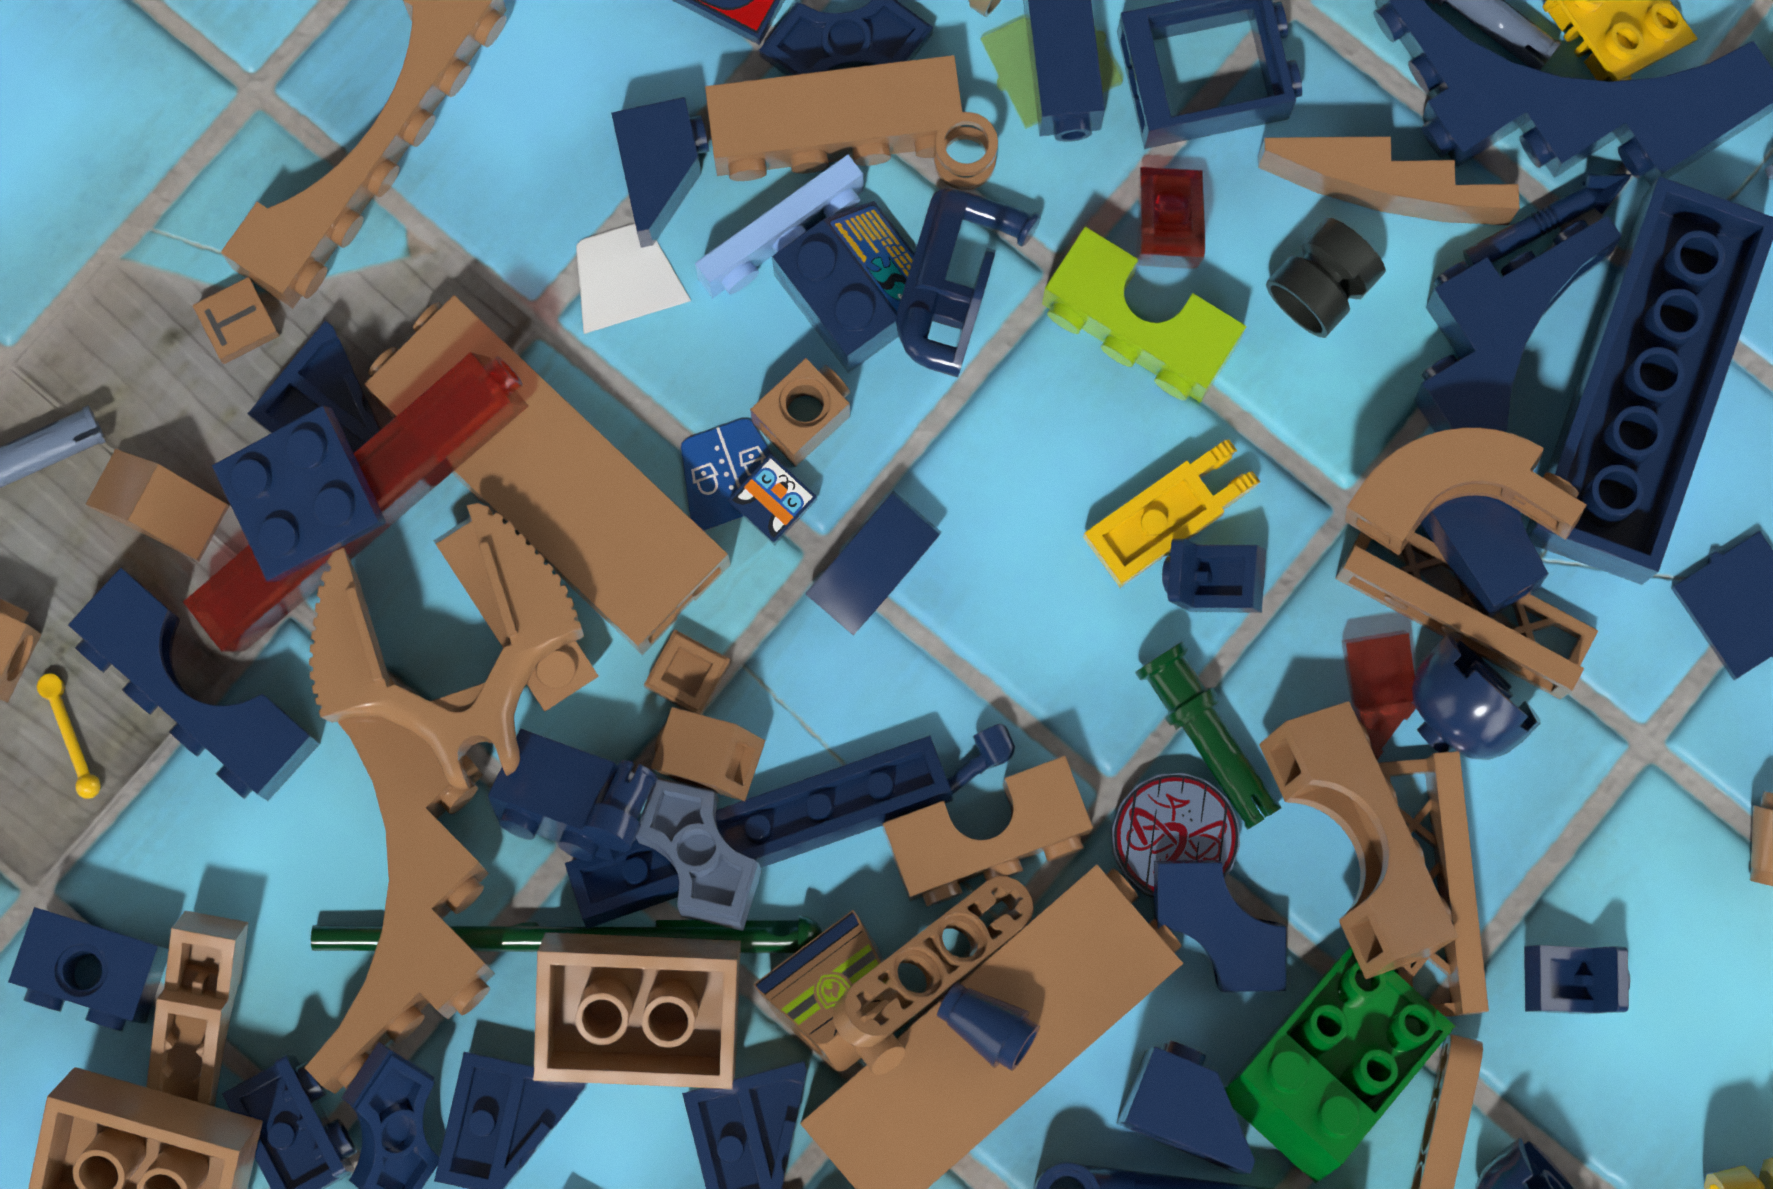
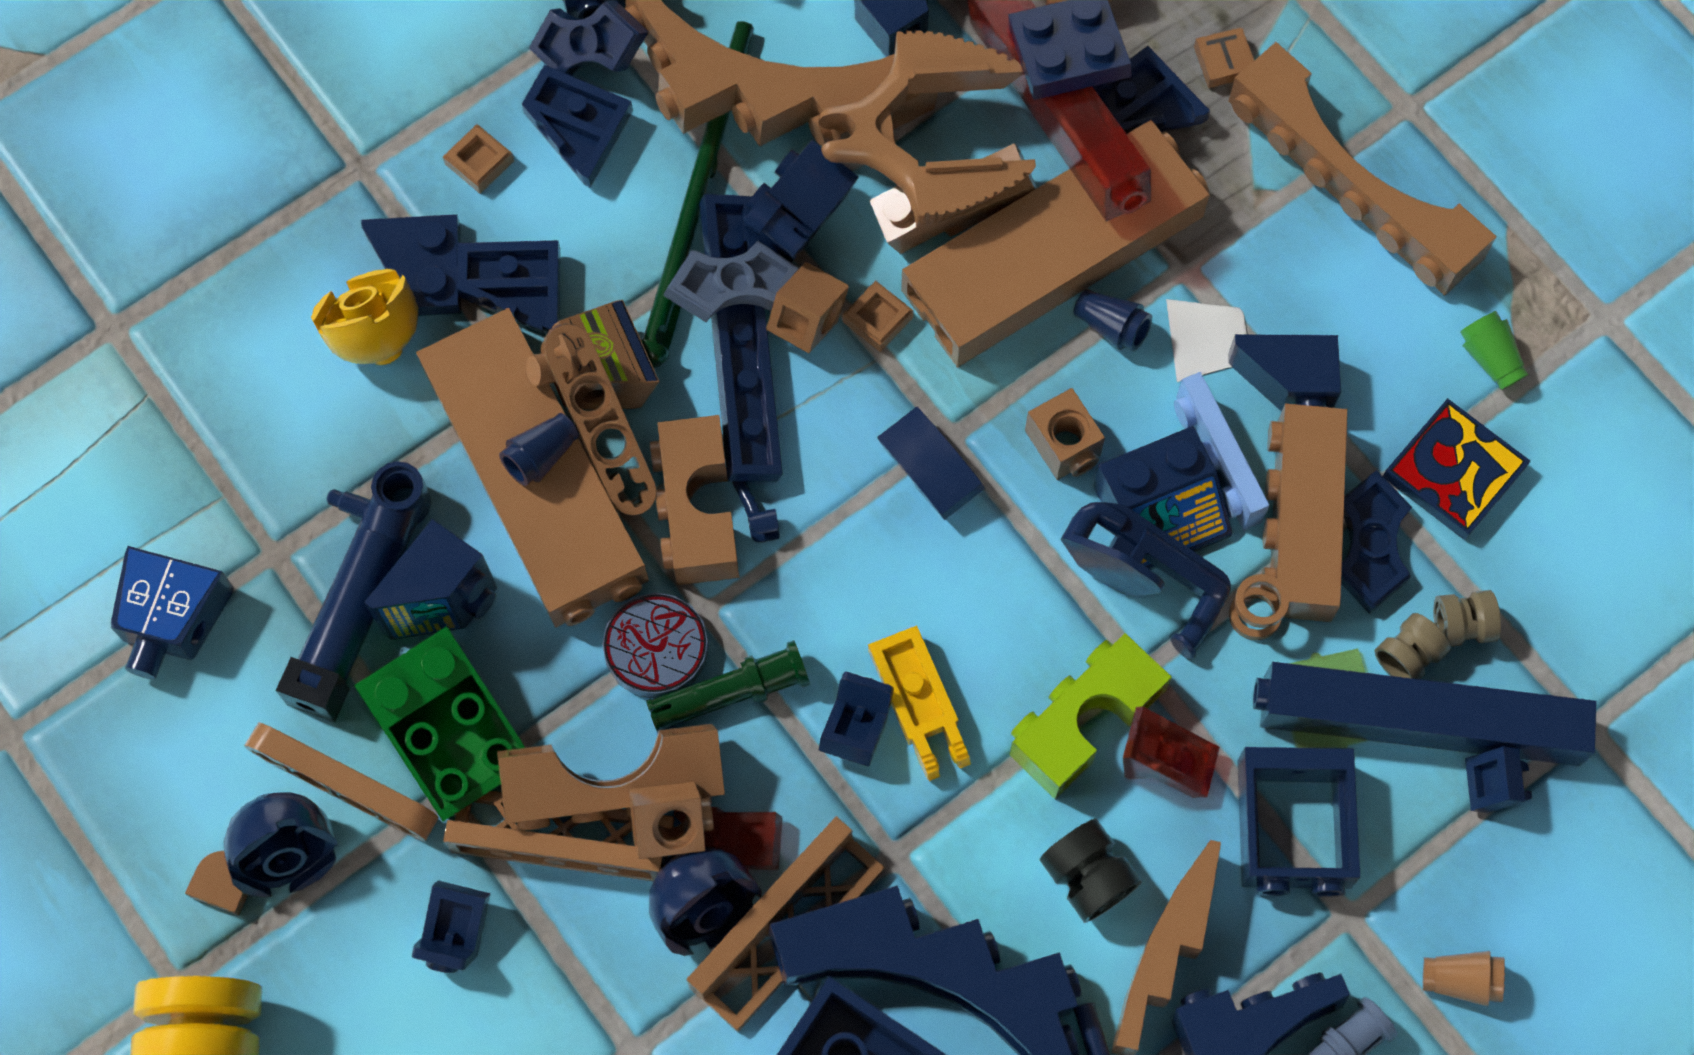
camera: 105 degrees right, 10 degrees down
(632, 385) = (1115, 319): none -> dark blue cone
(636, 1010) = (625, 214): medium nougat brick -> none
(717, 466) = (1025, 380): blue sticker -> none
(772, 499) = (999, 403): tile -> none
(1243, 949) = (554, 672): dark blue tile -> none
(1405, 750) = (652, 802): none -> medium nougat brick
(1454, 466) = (890, 878): medium nougat arch -> none

